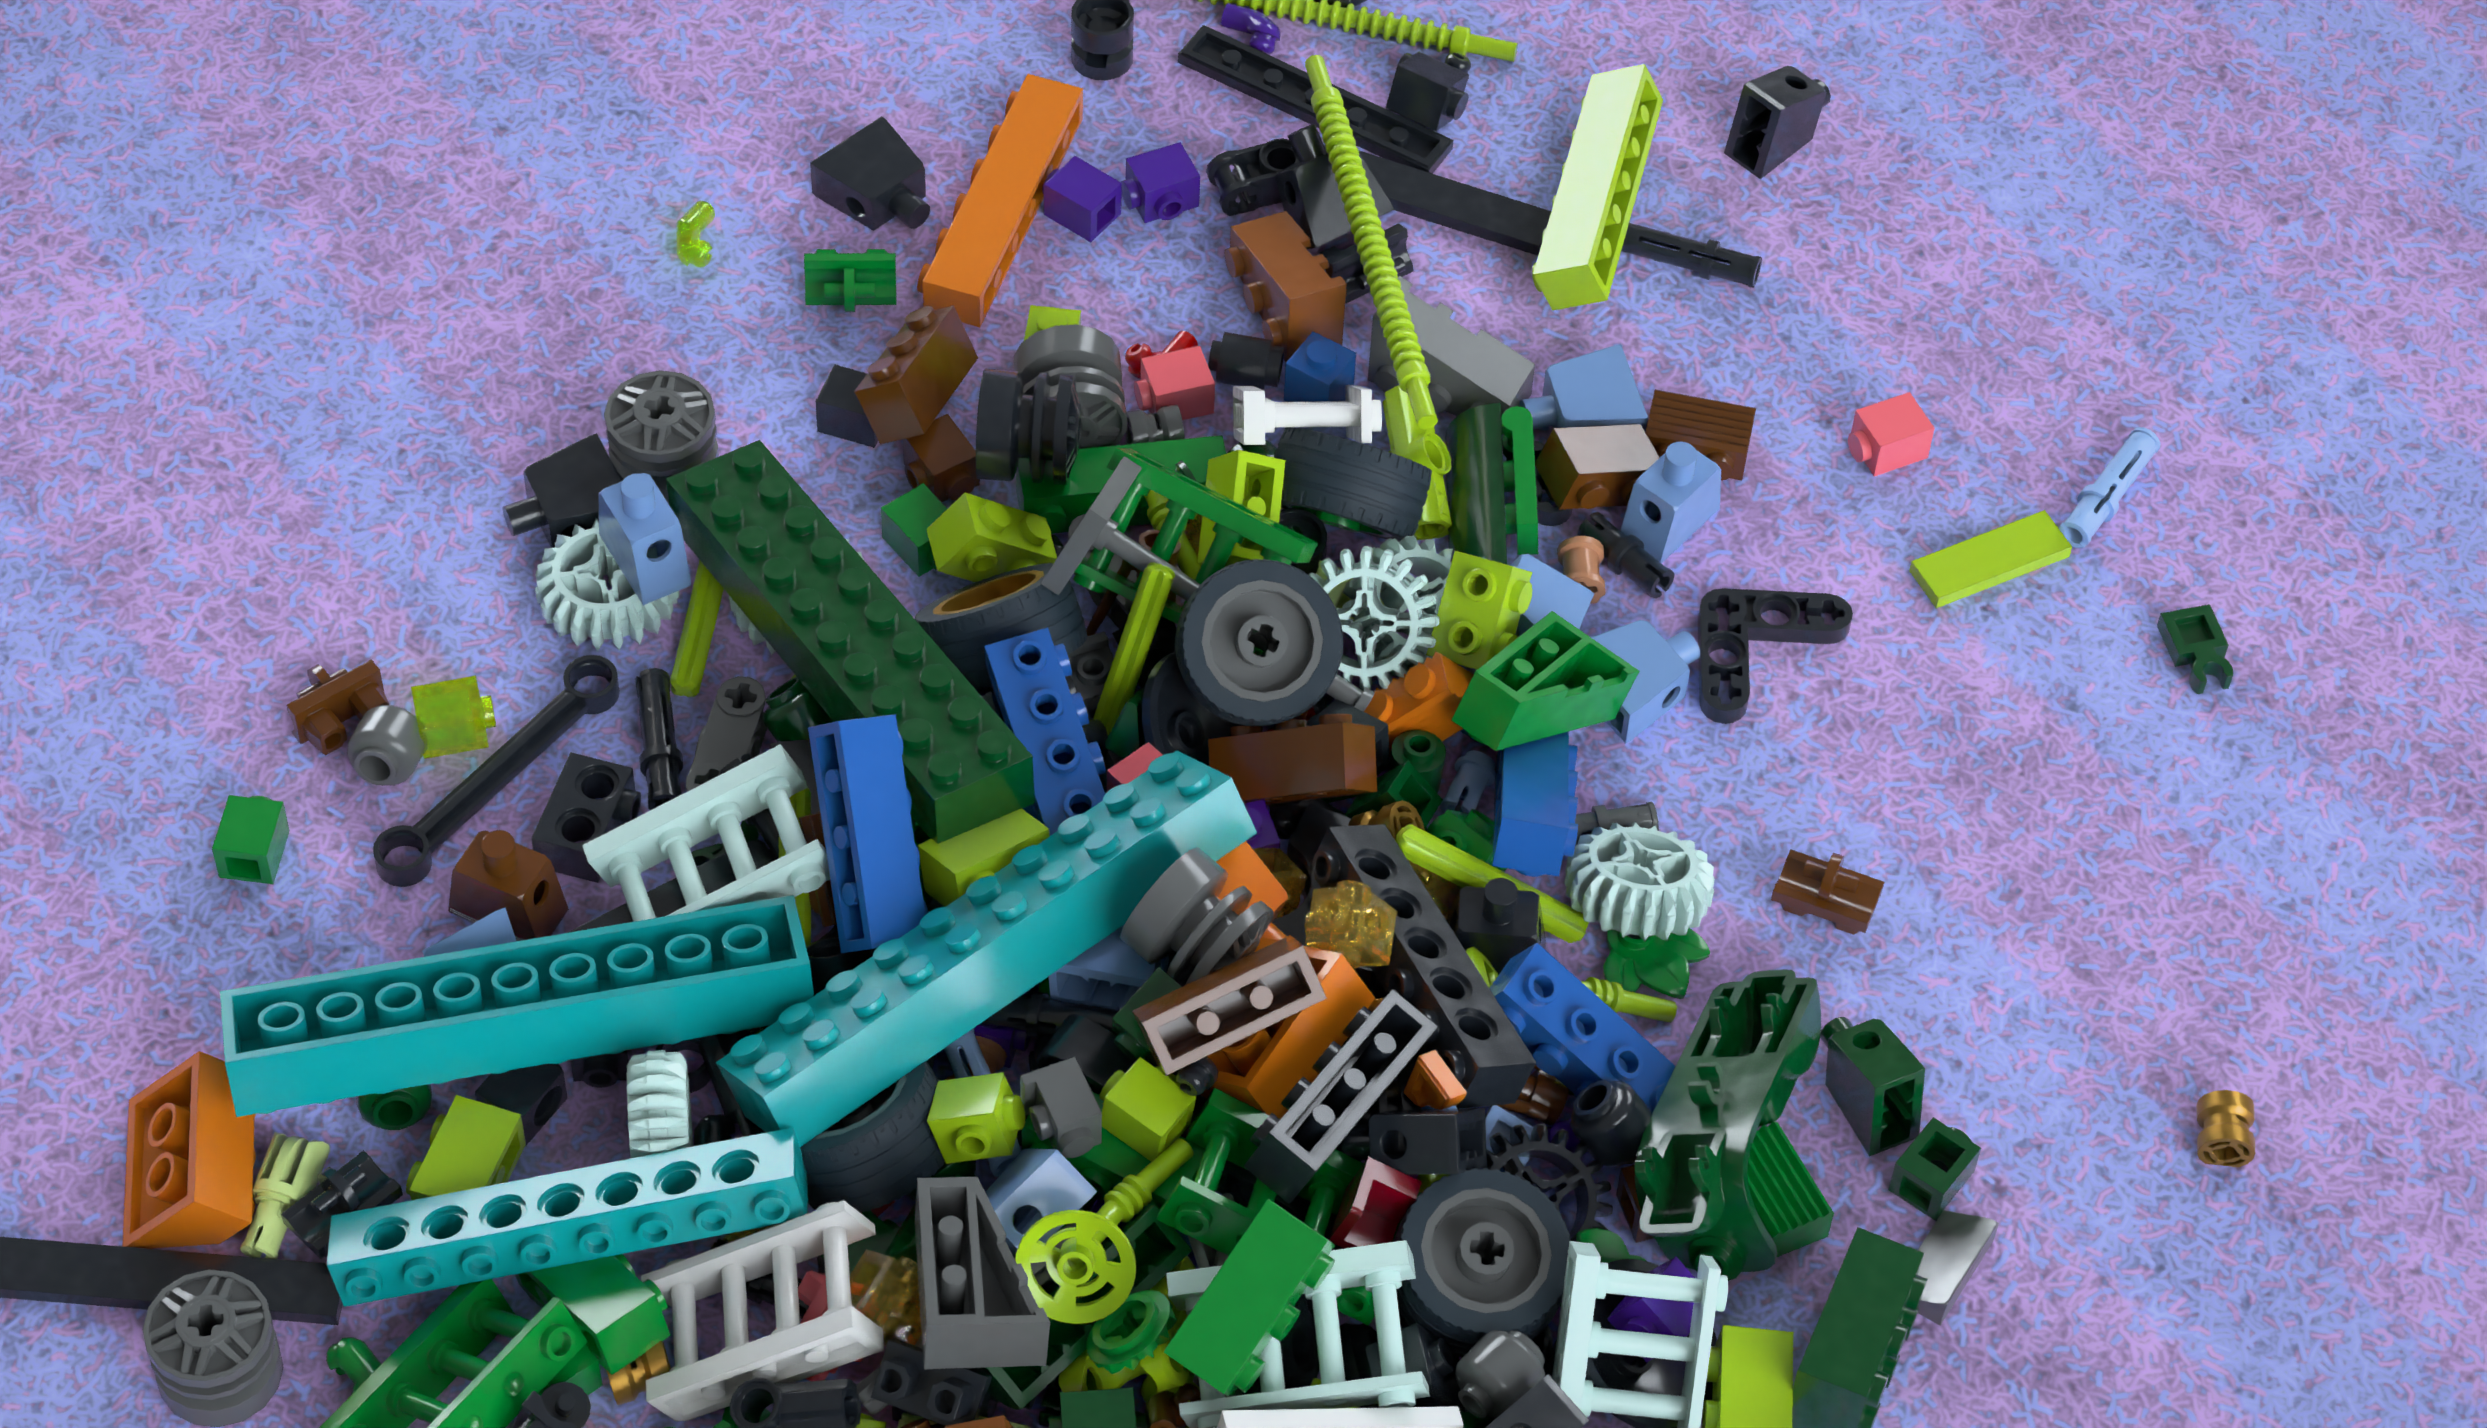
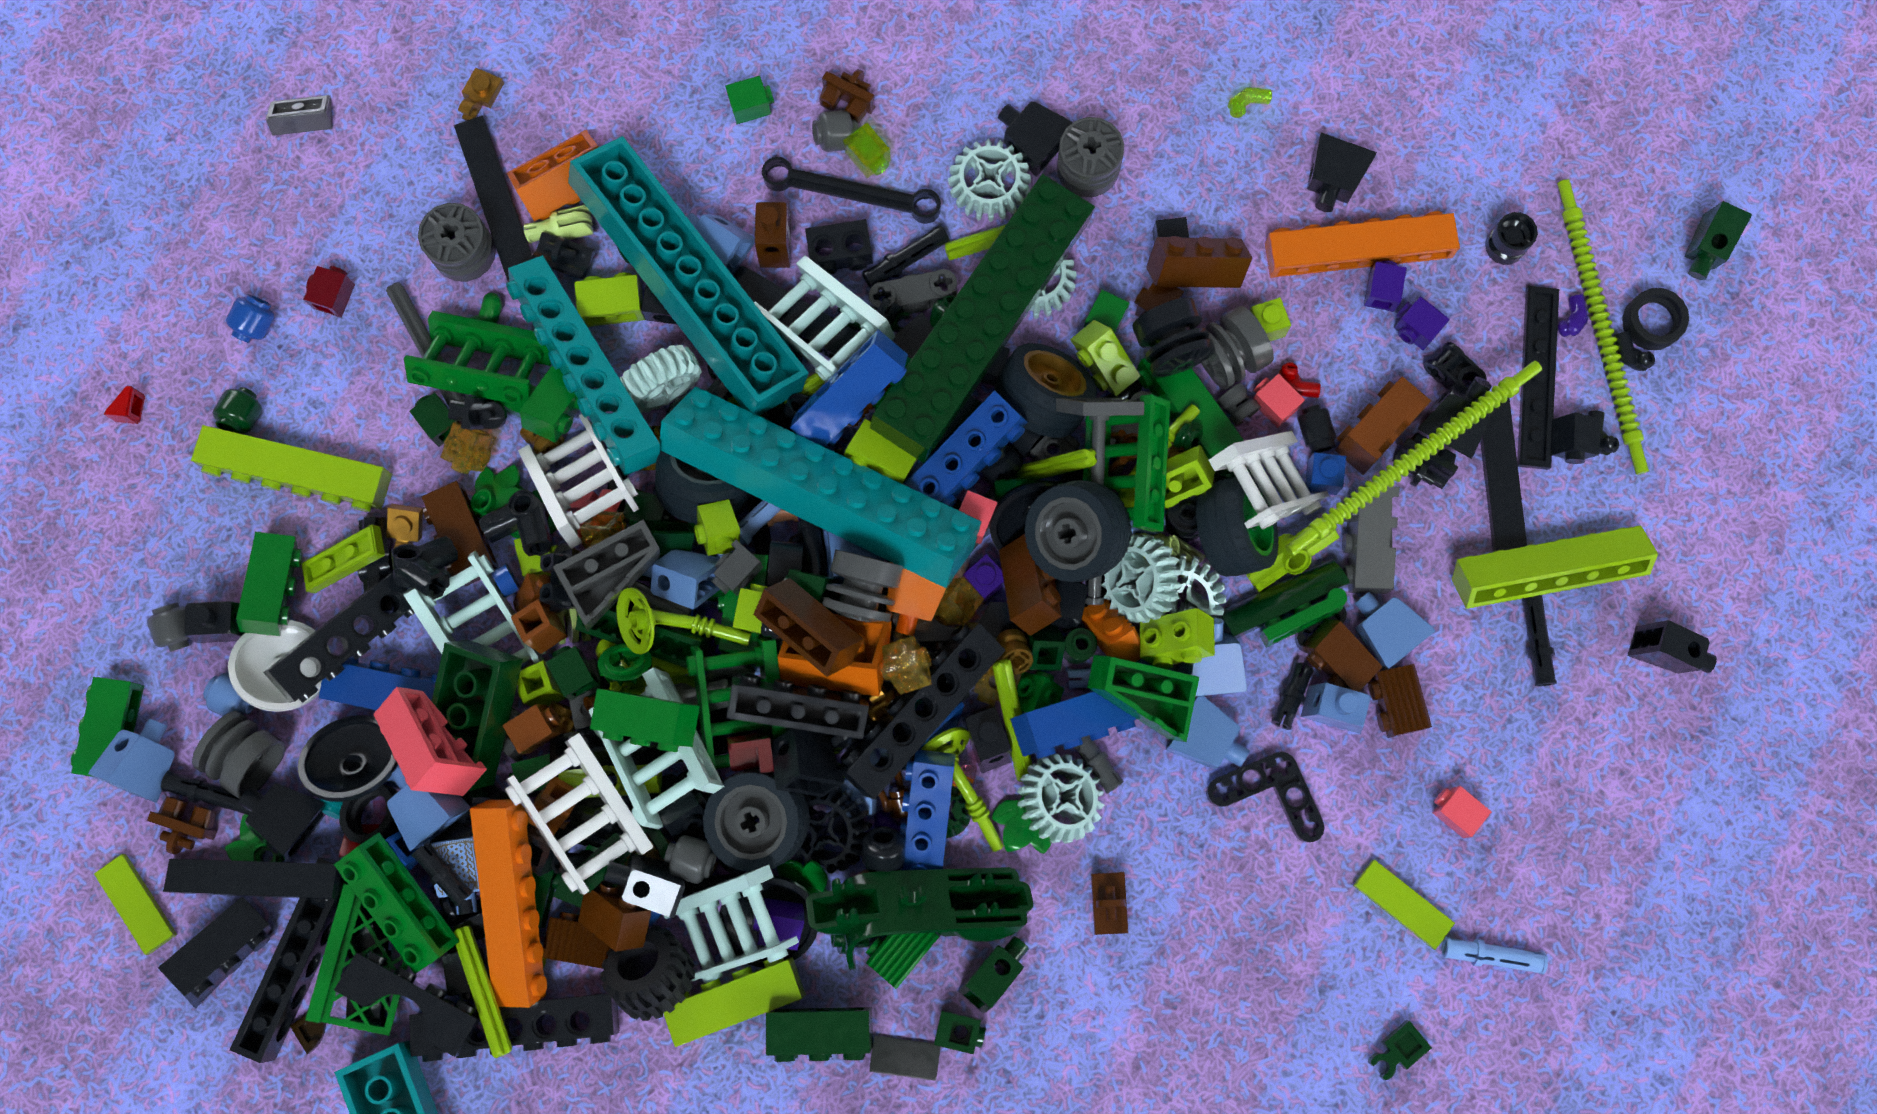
camera: 70 degrees right, 25 degrees up
(639, 518) = (1008, 179): medium blue torso -> none
(850, 278) = (1258, 196): green hips -> none
(1433, 1083) = (838, 750): orange tile -> none
(1581, 562) = (1267, 676): nougat bush -> none

